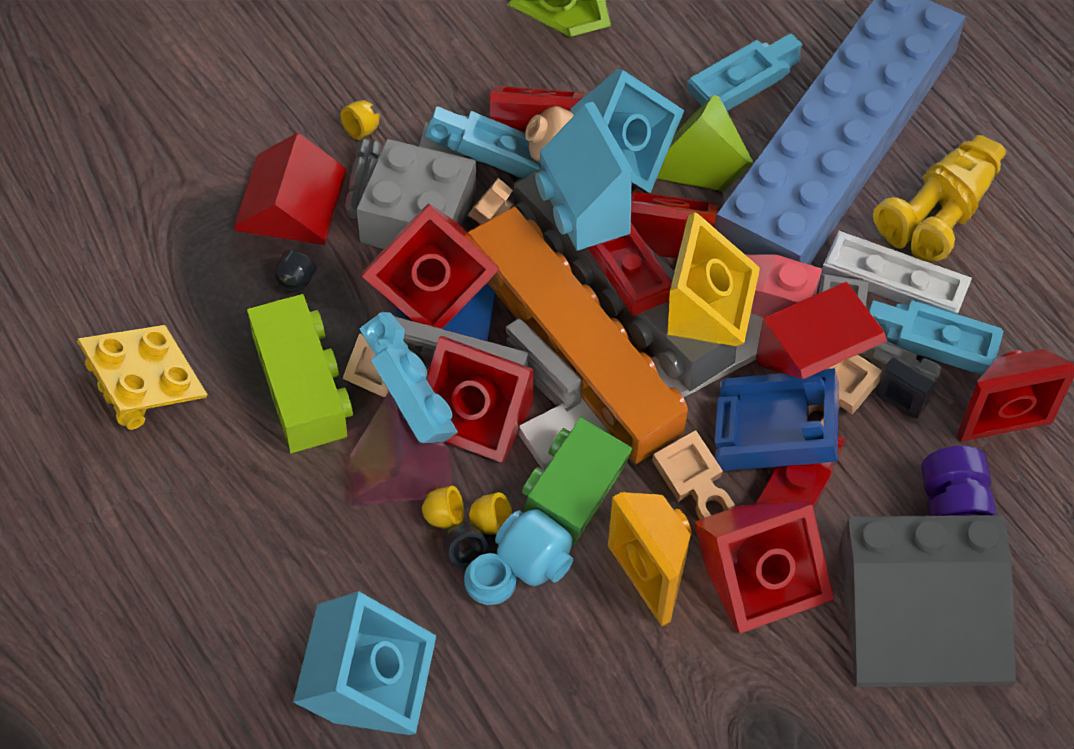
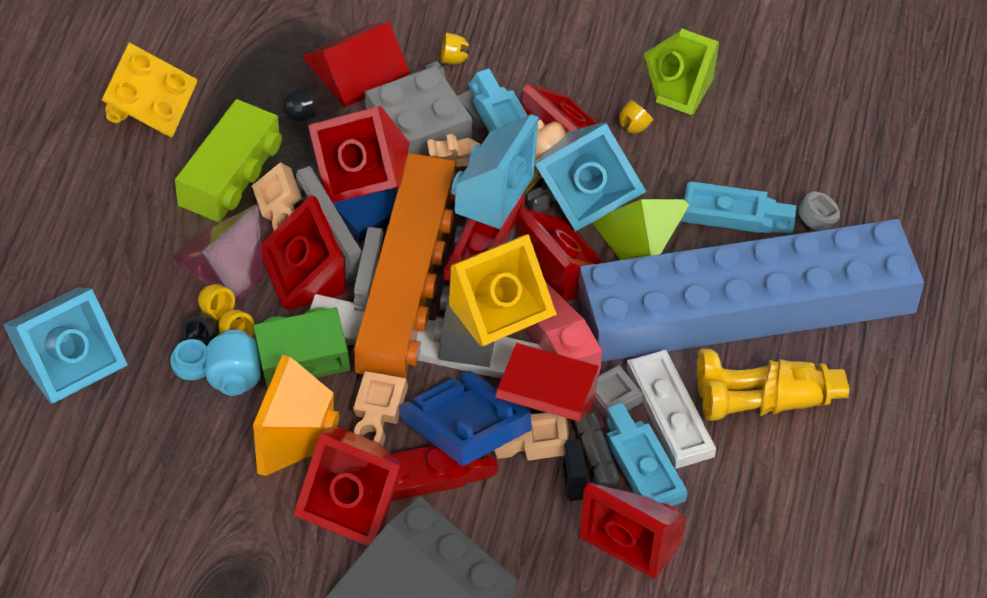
camera: 45 degrees right, 5 degrees down
(406, 380) = (268, 209): medium azure hinge -> none
(577, 58) = (636, 116): none -> yellow hinge
(804, 25) = (818, 211): none -> light grey tile
(958, 482) = (526, 548): dark purple wheel -> none

